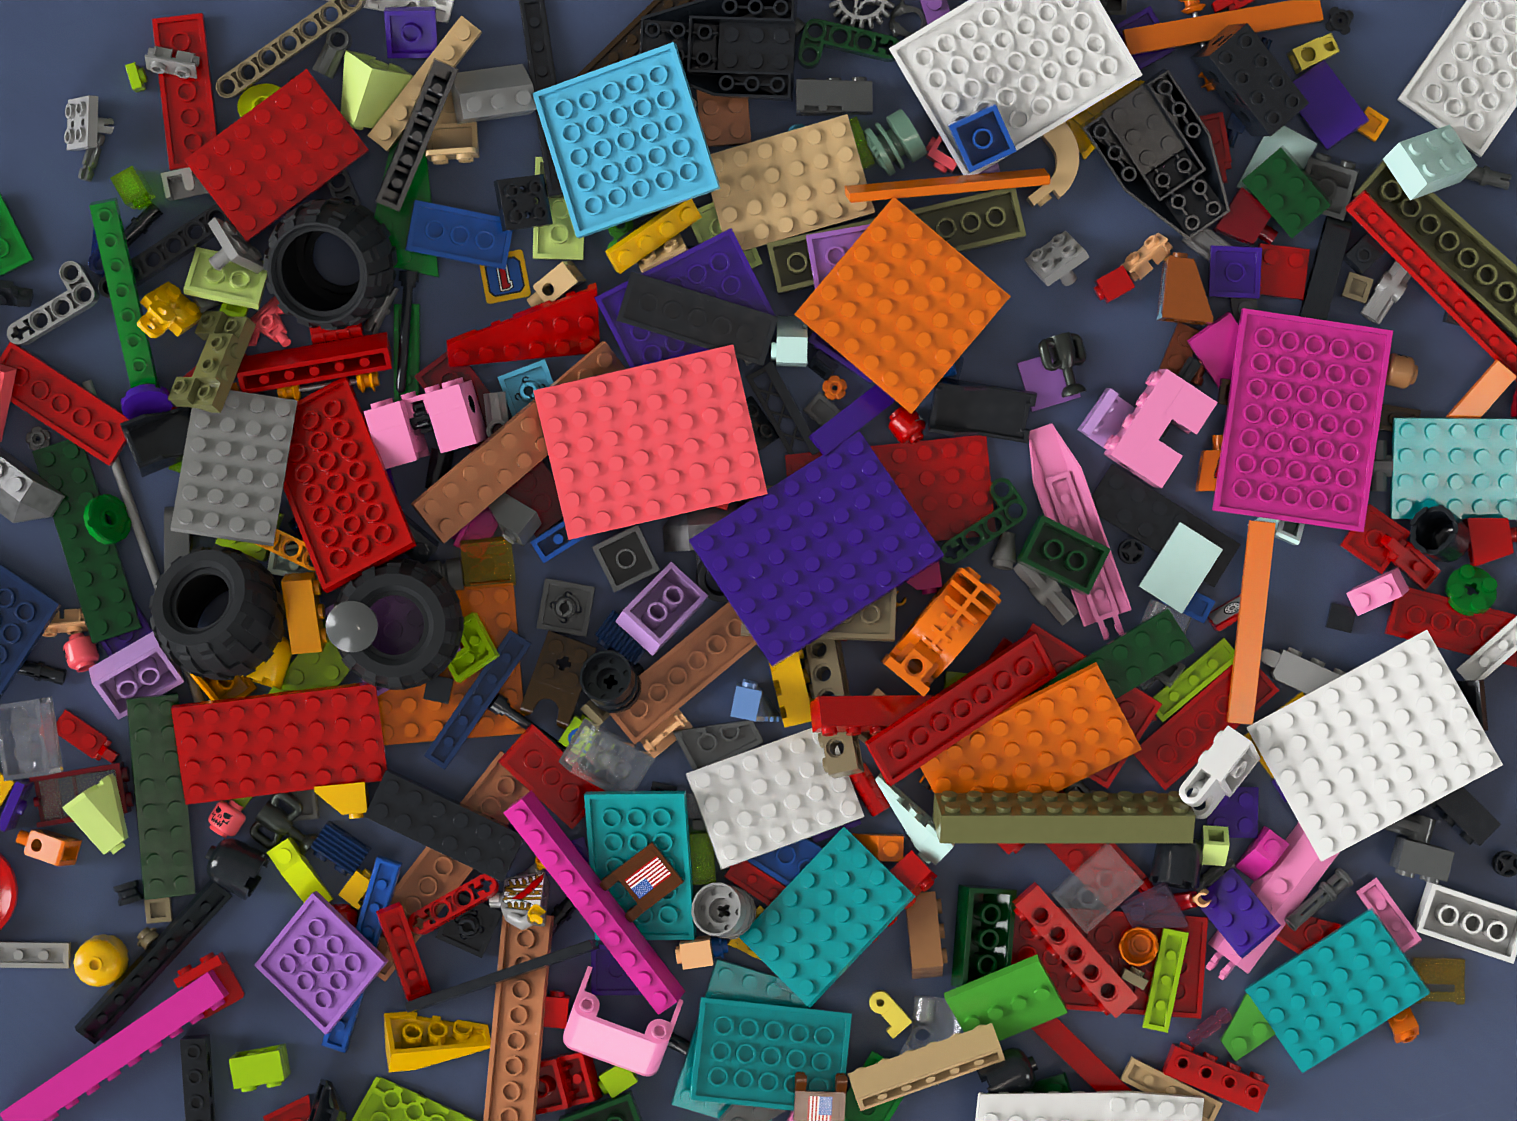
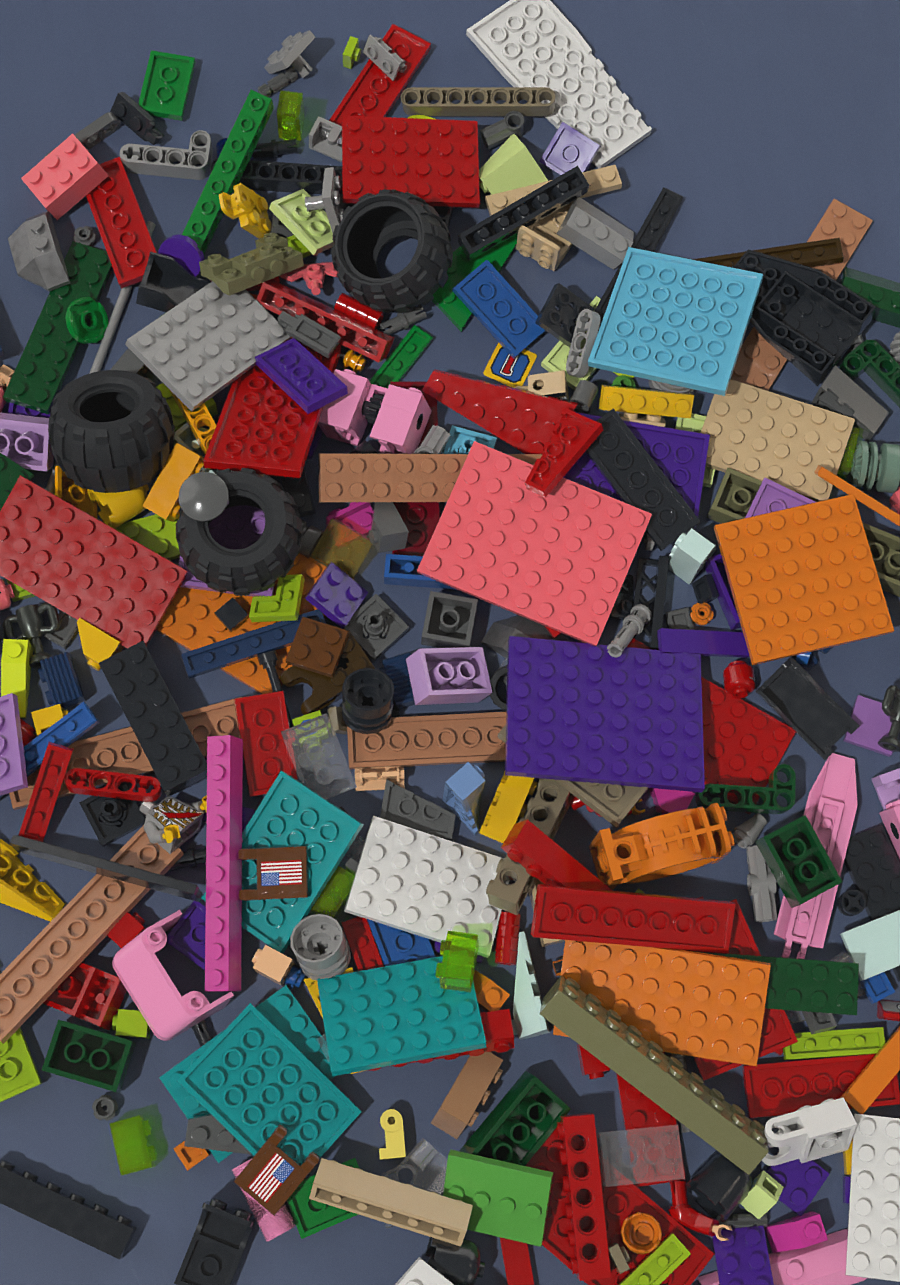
camera: 25 degrees right, 15 degrees down
(314, 389) = (310, 333): none -> dark grey hinge
(339, 440) = (301, 375): none -> dark purple plate
(408, 282) = (438, 314): black piece -> none
(514, 607) = (336, 595): none -> dark purple plate
(534, 667) = (317, 647): none -> reddish brown plate
(547, 204) = (579, 334): none -> light grey beam
(595, 270) = (584, 396): none -> dark grey piece
(617, 340) = (568, 443): none -> red wing
(784, 449) = (632, 625): none -> light grey pin
(843, 843) = (458, 961): none -> clear neon green brick
(1154, 909) = (675, 1211): clear purple wing -> none

